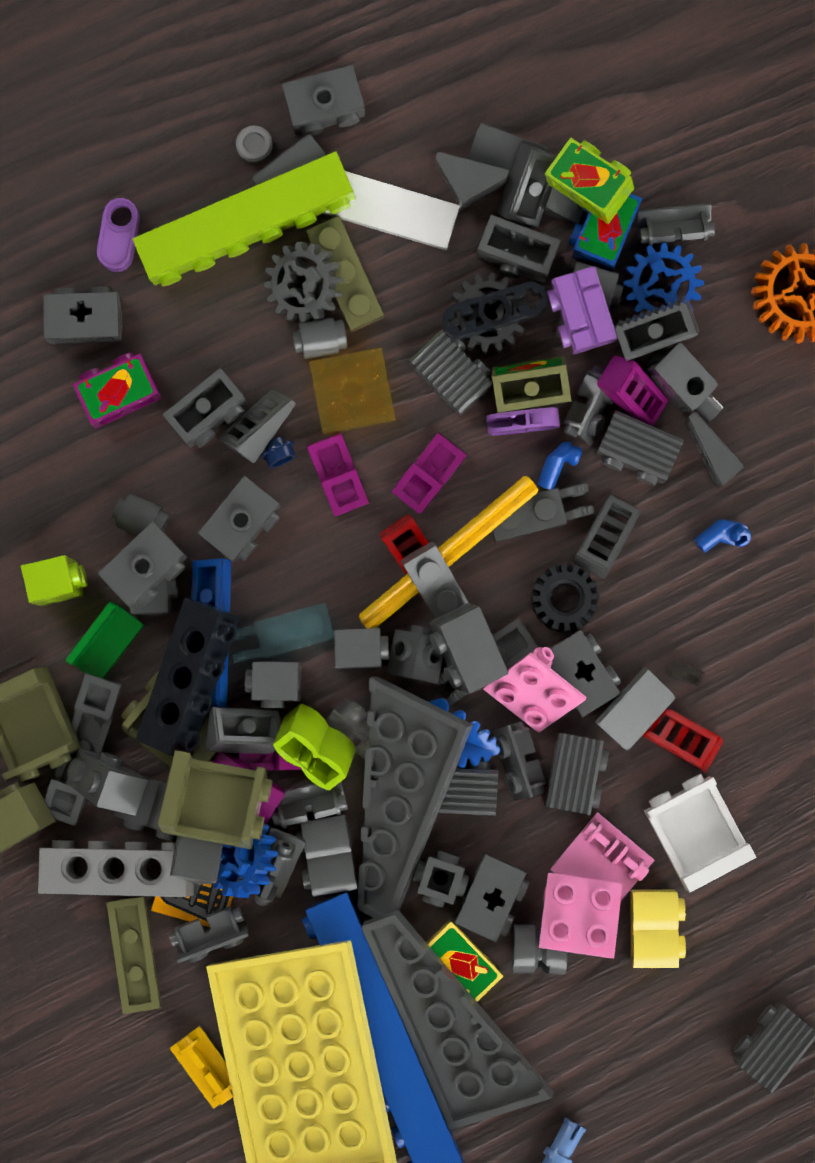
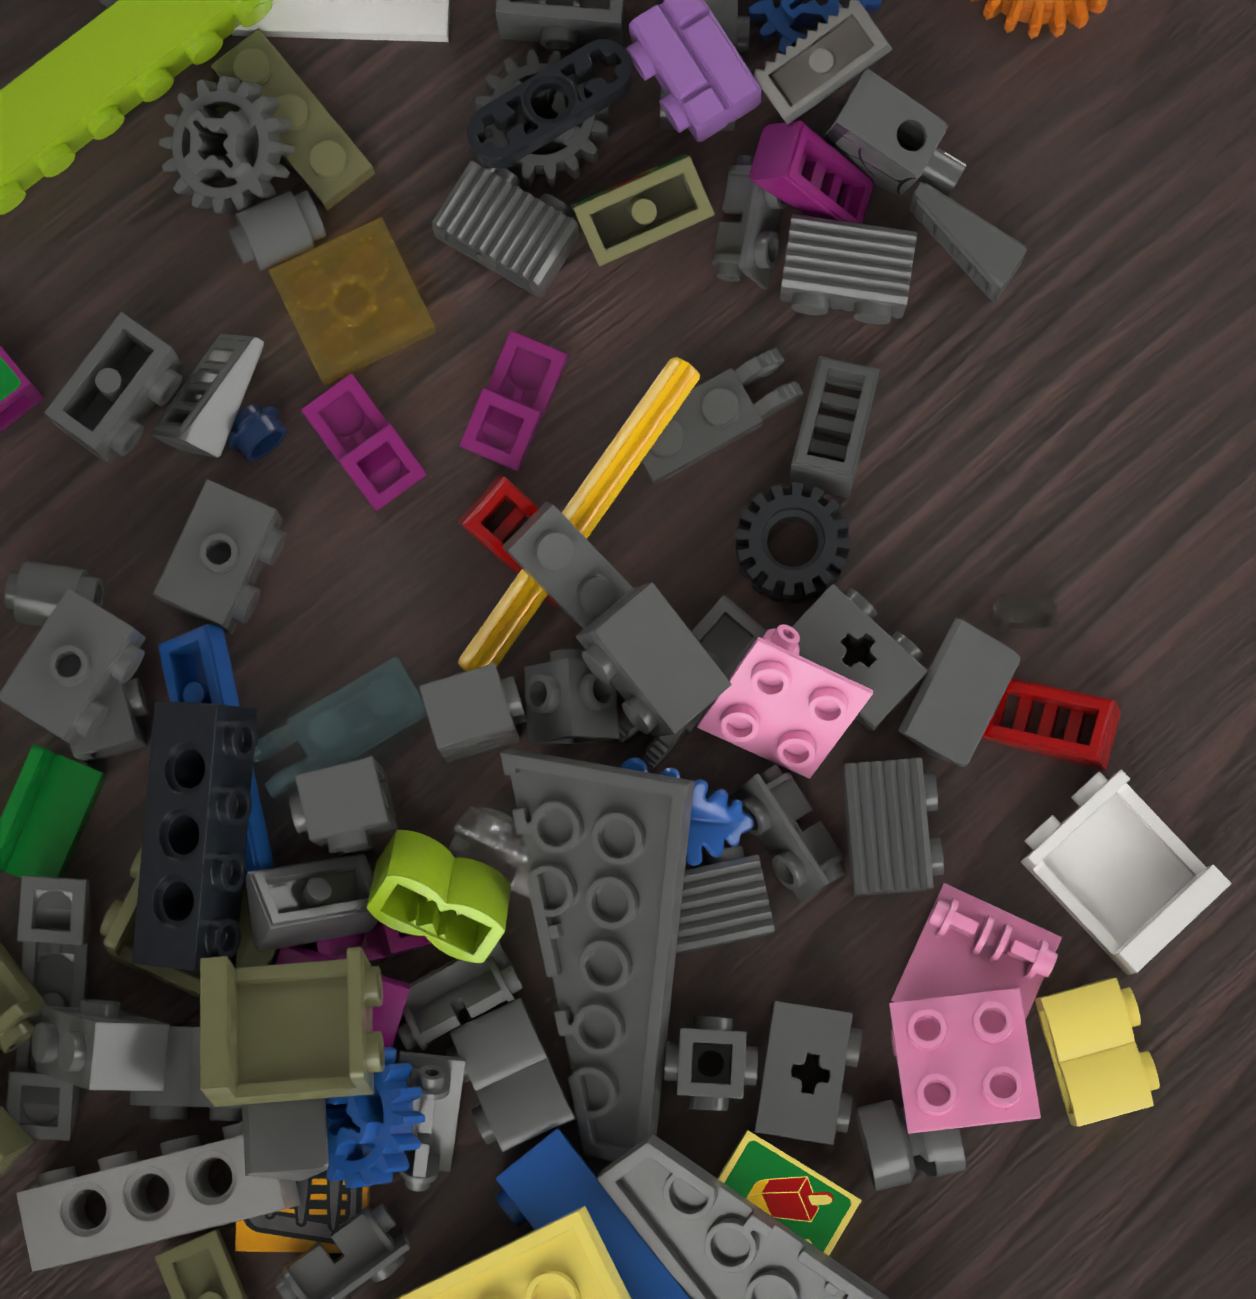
camera: 10 degrees left, 5 degrees down
(523, 421) = (645, 275): medium lavender piece -> none
(554, 463) = (716, 327): blue arm -> none
(725, 532) = (1025, 368): blue arm -> none

